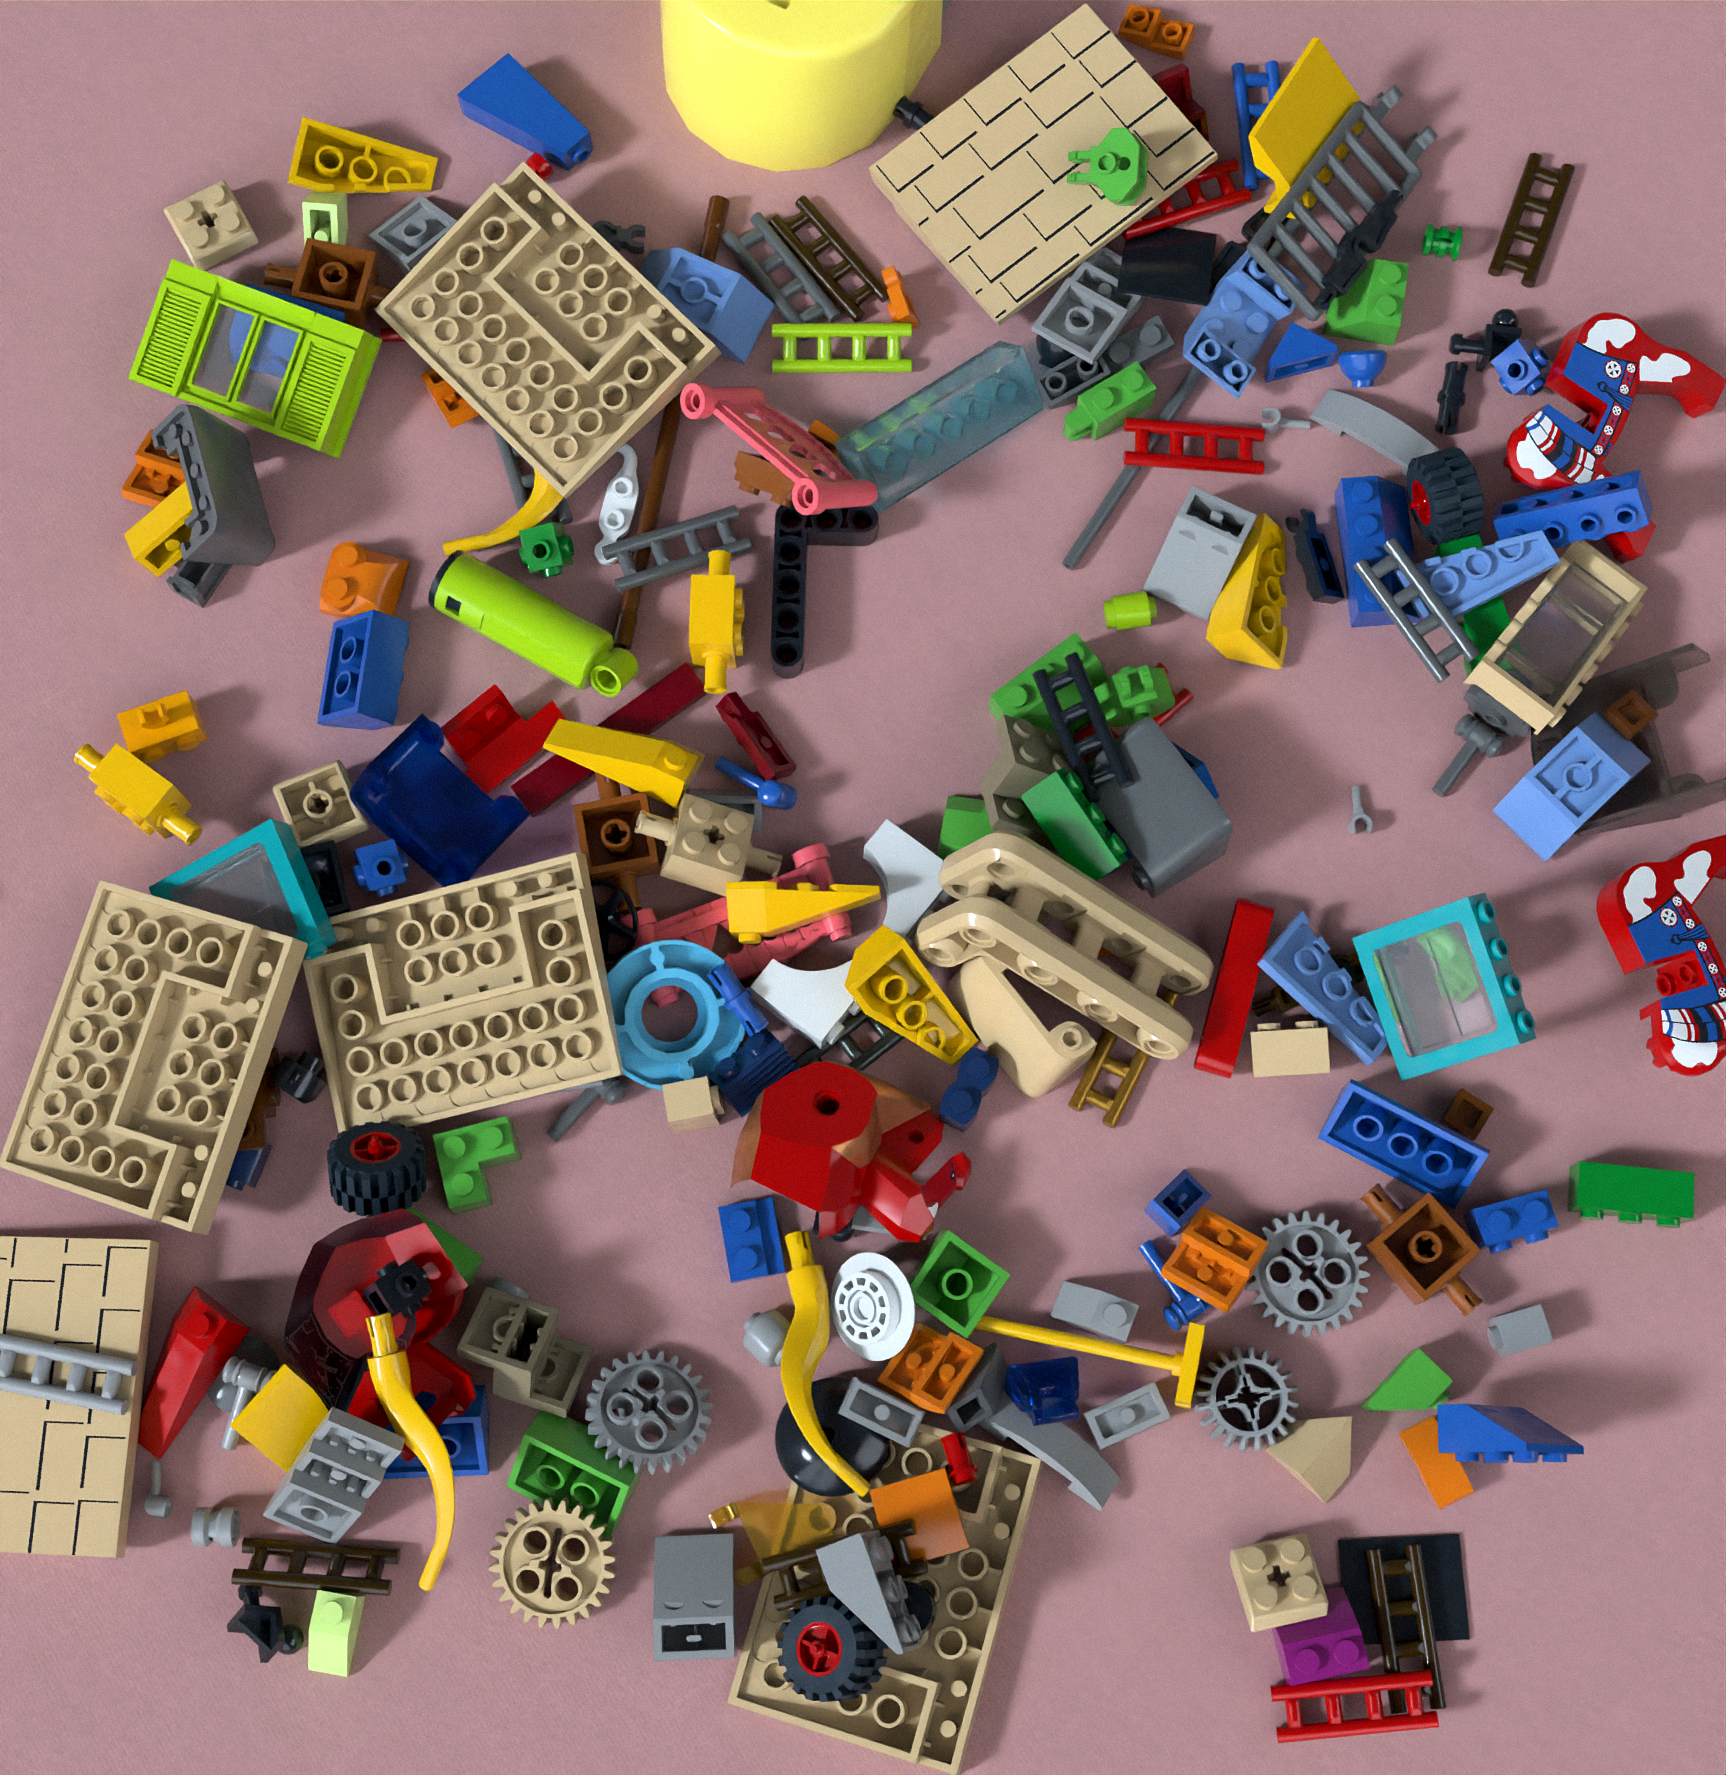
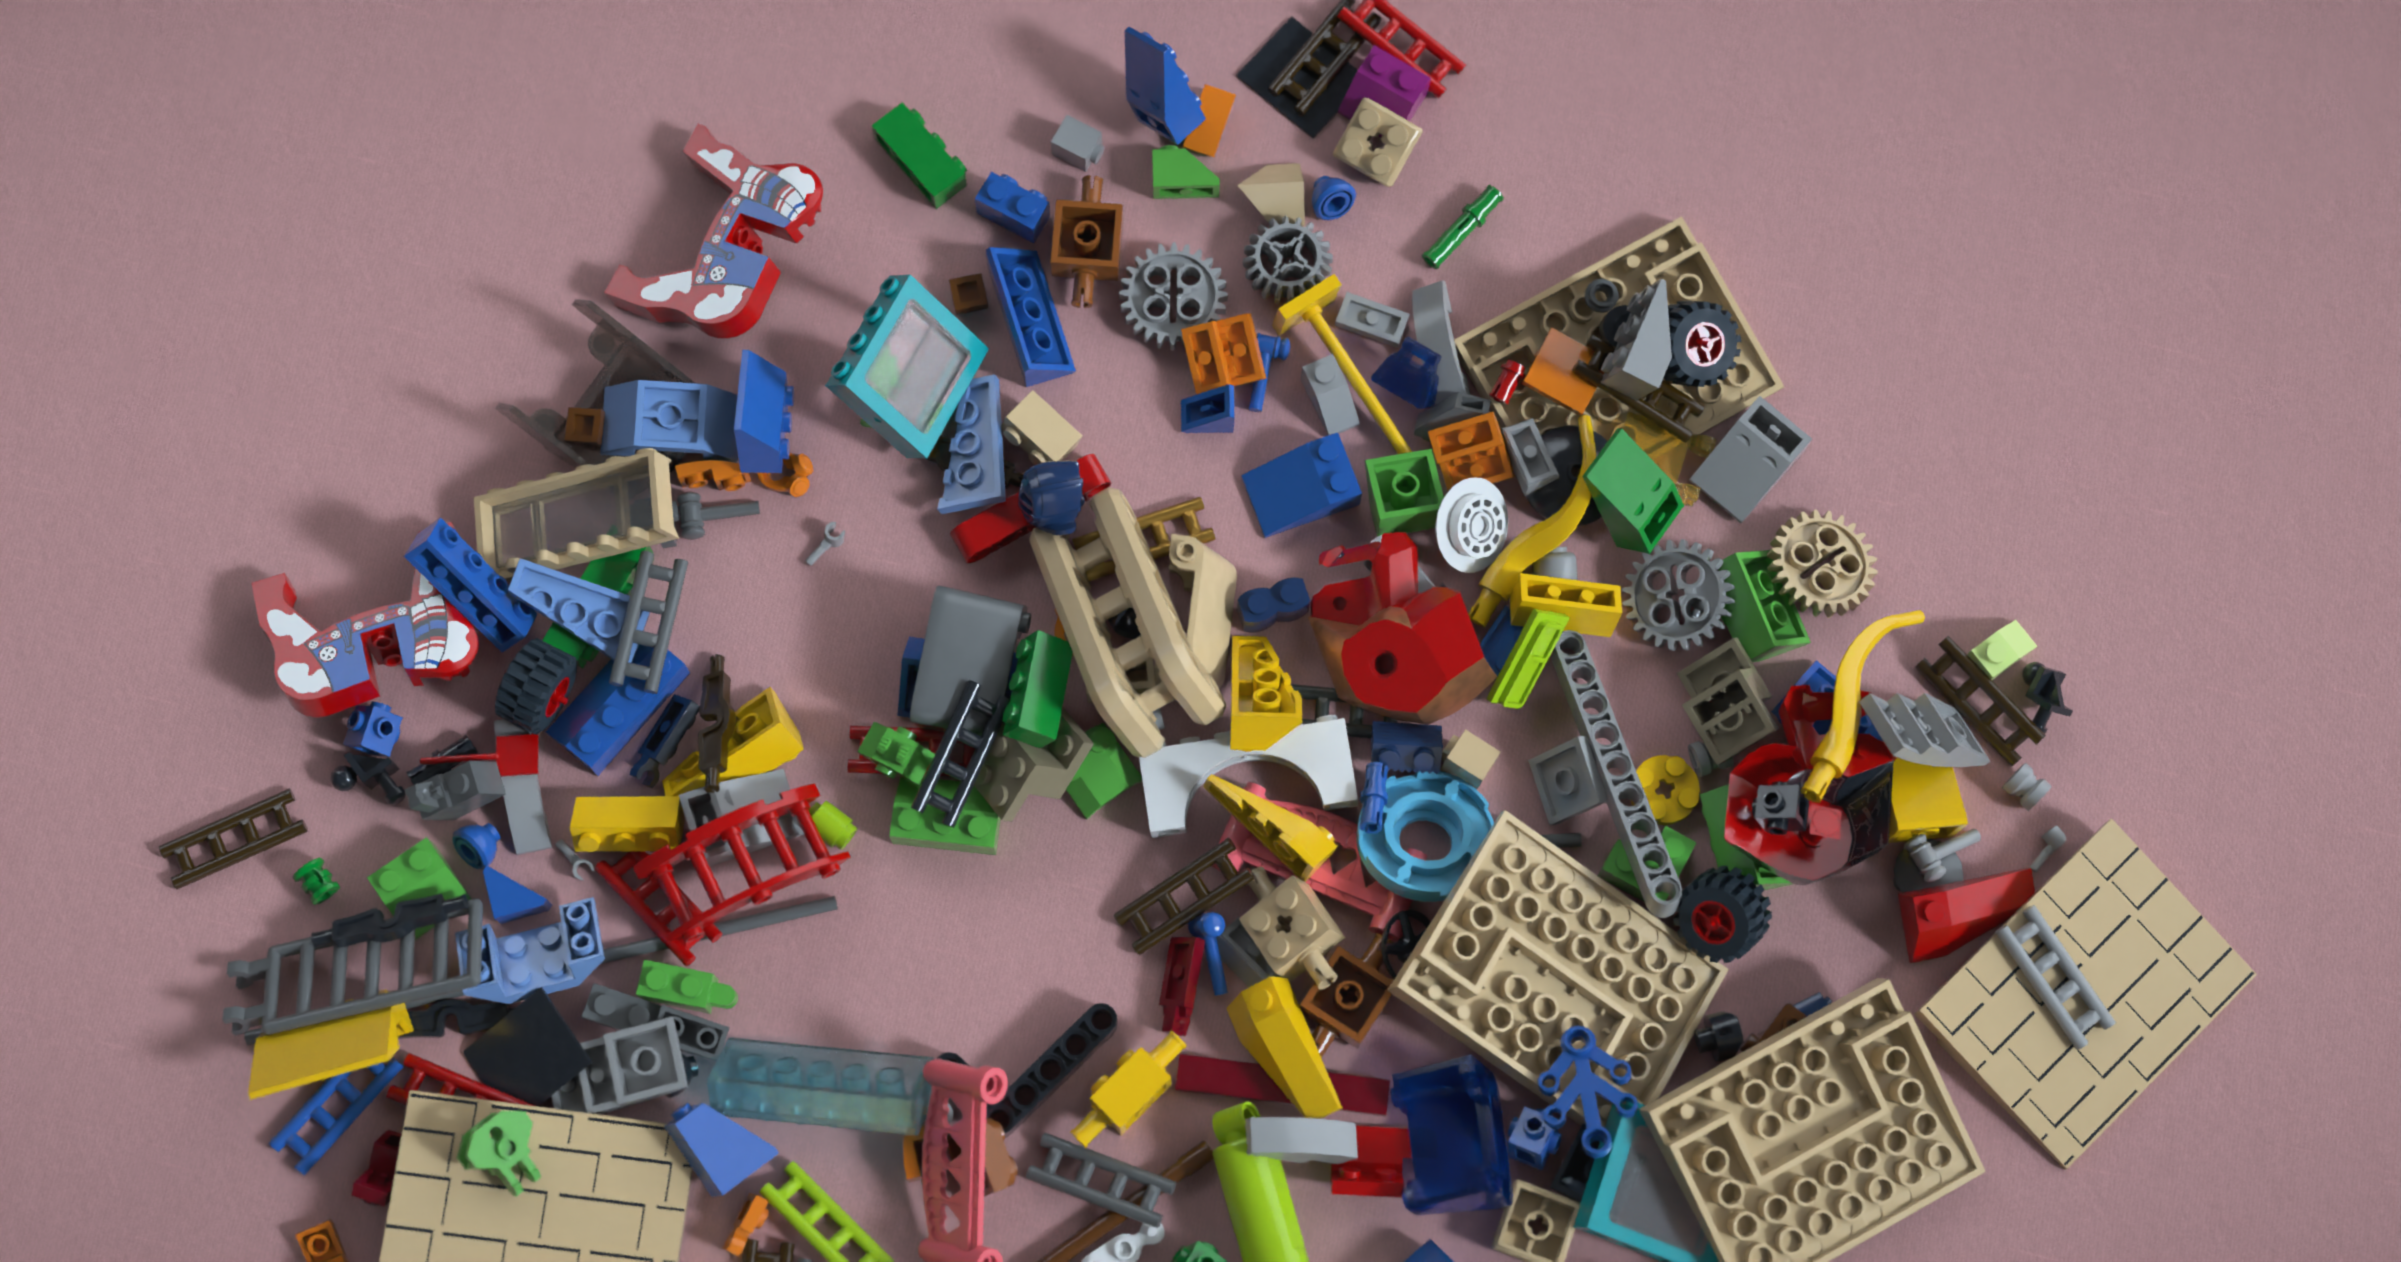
camera: 140 degrees left, 0 degrees up
(364, 922) = (1586, 1085): none -> blue plant
(511, 1220) = (1680, 776): none -> yellow plate
(552, 697) = (1301, 1139): none -> light grey slope
(584, 1206) = (1621, 786): none -> light grey beam
(599, 1166) = (1568, 780): none -> light grey plate
(720, 1229) = (1527, 658): none -> lime piece
(732, 1310) = (1590, 605): none -> yellow brick
(763, 1456) = (1632, 494): none -> slope
(826, 816) = (1205, 901): none -> dark brown bar
(943, 1617) = (1608, 289): none -> dark grey plate
(968, 318) = (717, 1147): none -> slope
(1042, 1213) = (1303, 486): none -> blue slope
(1133, 1579) = (1472, 216): none -> green pin
(1190, 515) = (729, 829): none -> red fence
(1221, 992) = (1052, 496): none -> dark blue piece
(1267, 1493) = (1332, 197): none -> blue brick
(1274, 468) = (626, 823): none -> yellow brick
(1277, 582) = (715, 738): none -> dark brown piece
(1405, 440) = (514, 755): none -> red piece
(1417, 373) = (457, 791): none -> dark grey hinge
(1442, 852) = (796, 484): none -> orange piece
(1494, 782) = (725, 473): none -> orange slope
(1513, 847) = (762, 415): none -> blue slope

